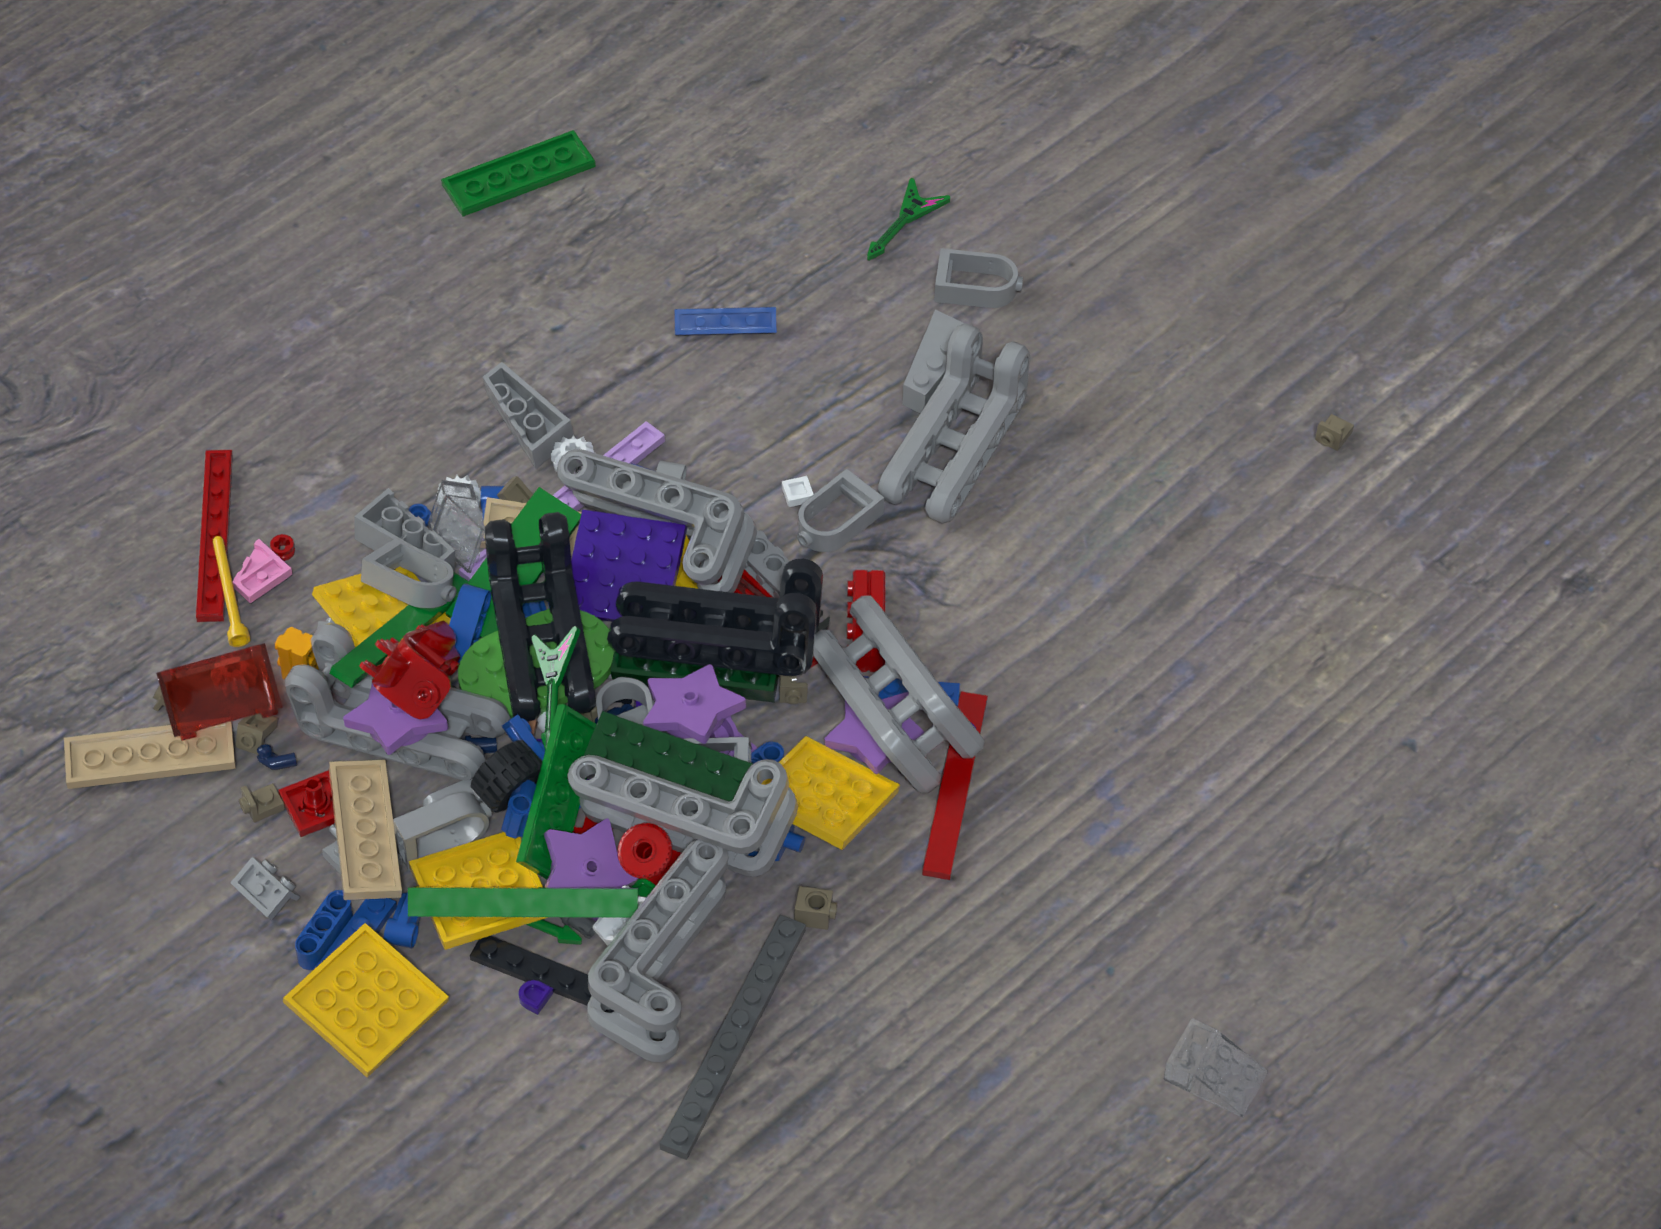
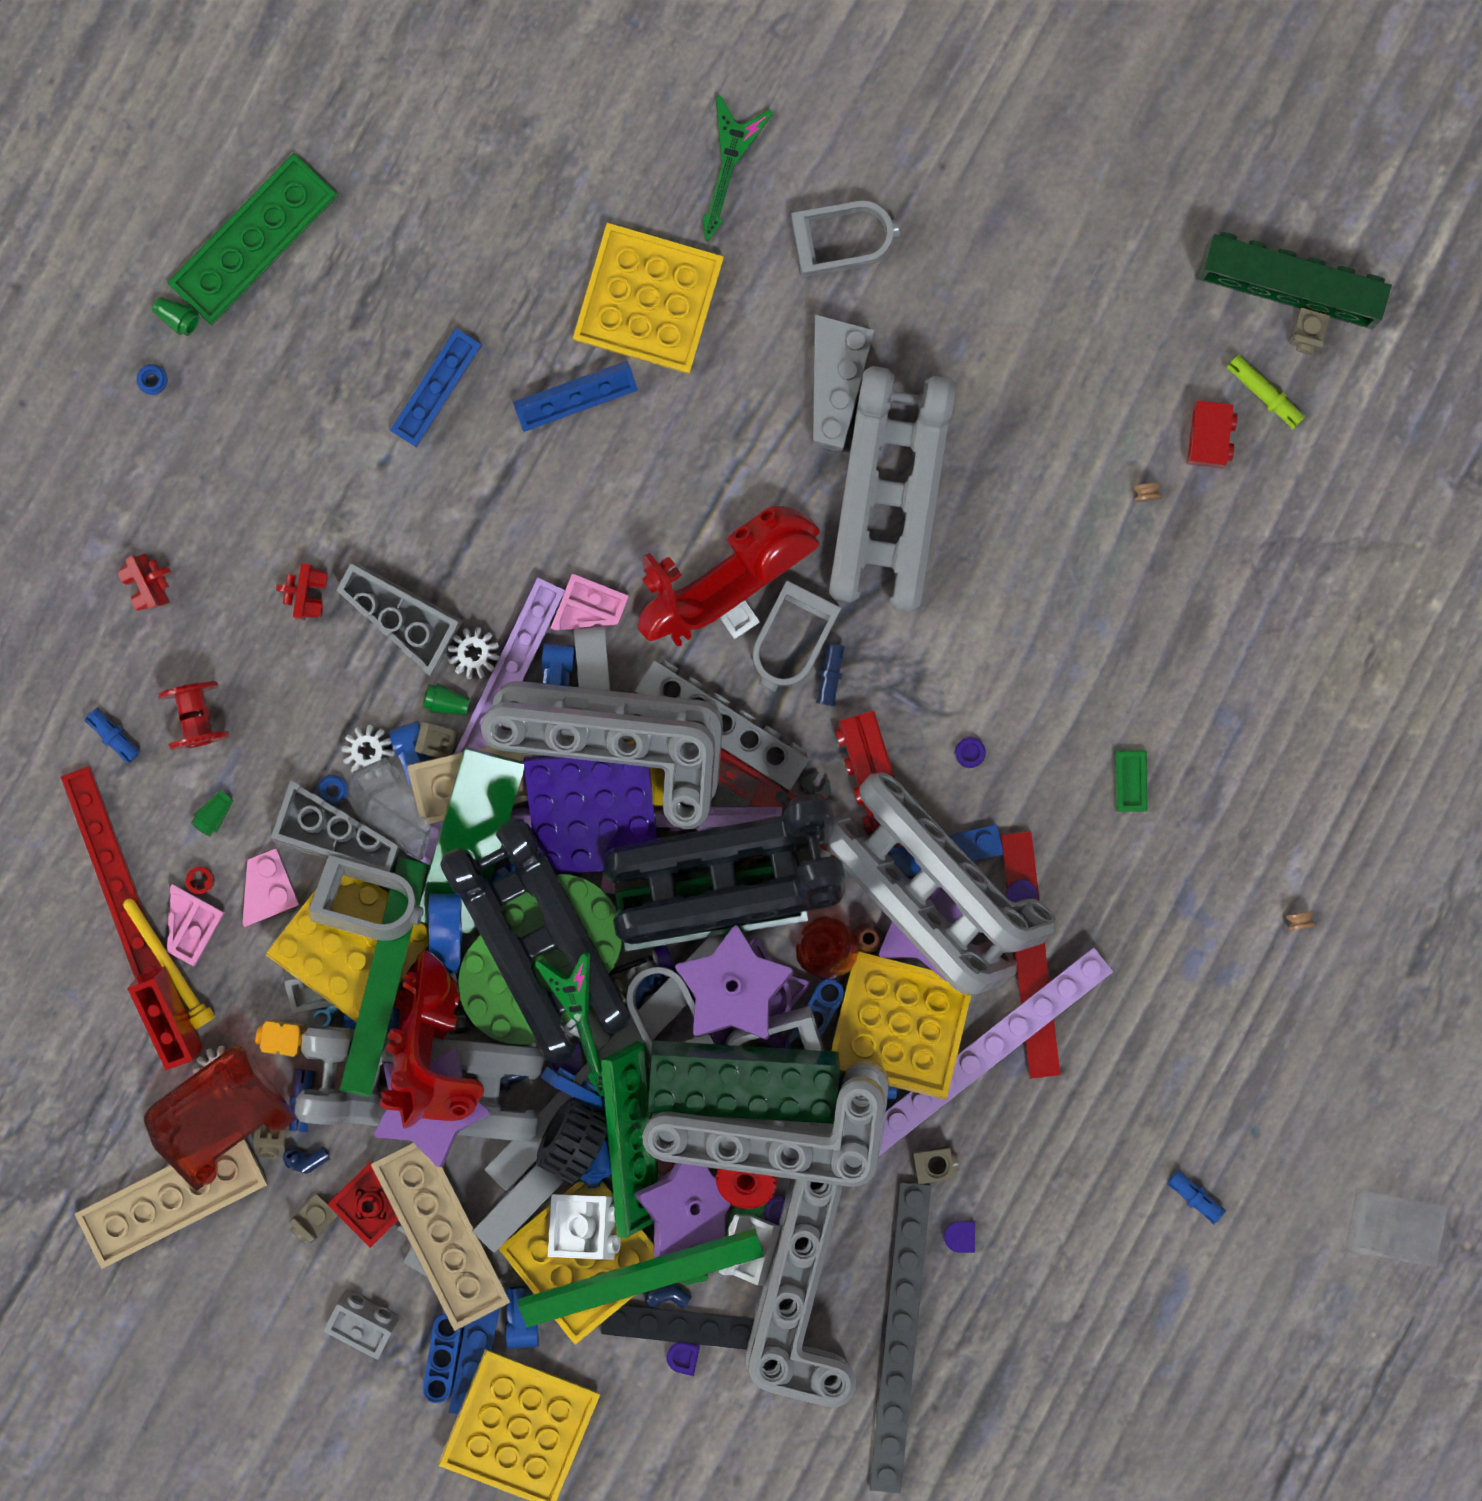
camera: 20 degrees left, 35 degrees up
(208, 616) = (165, 1018): none -> red brick
(260, 436) = (112, 735): none -> blue pin
(285, 725) = (299, 1086): none -> blue pin
(313, 505) = (212, 814): none -> green cone
(329, 442) = (193, 715): none -> red hose
(333, 564) = (267, 888): none -> bright pink wing
(338, 344) = (149, 580): none -> red hips
(401, 231) = (147, 371): none -> blue plate
(439, 199) = (177, 316): none -> green cone
(452, 382) = (307, 578): none -> red hips
(489, 855) = (583, 1227): none -> white plate
(534, 478) = (444, 700): none -> green cone
(542, 940) = (667, 1293): none -> dark blue arm
(618, 290) = (436, 388): none -> blue plate
(681, 449) = (588, 605): none -> bright pink wing
(784, 722) = (827, 948): none -> clear red cylinder
(808, 279) = (648, 298): none -> yellow plate
(817, 972) = (960, 1236): none -> dark purple tile
(819, 726) = (878, 937): none -> copper cone
(830, 440) = (762, 551): none -> red piece
(858, 547) = (830, 674): none -> dark blue pin
(889, 839) = (999, 1042): none -> lavender plate
(955, 632) = (970, 752): none -> dark purple tile
(1040, 1000) = (1196, 1197): none -> blue pin
(1085, 687) = (1131, 781): none -> green tile
(1165, 496) = (1147, 492): none -> medium nougat bush
(1200, 819) = (1301, 920): none -> medium nougat bush
(1230, 472) = (1211, 434): none -> red brick
(1291, 466) = (1266, 392): none -> lime pin
(1329, 387) = (1293, 280): none -> dark green brick

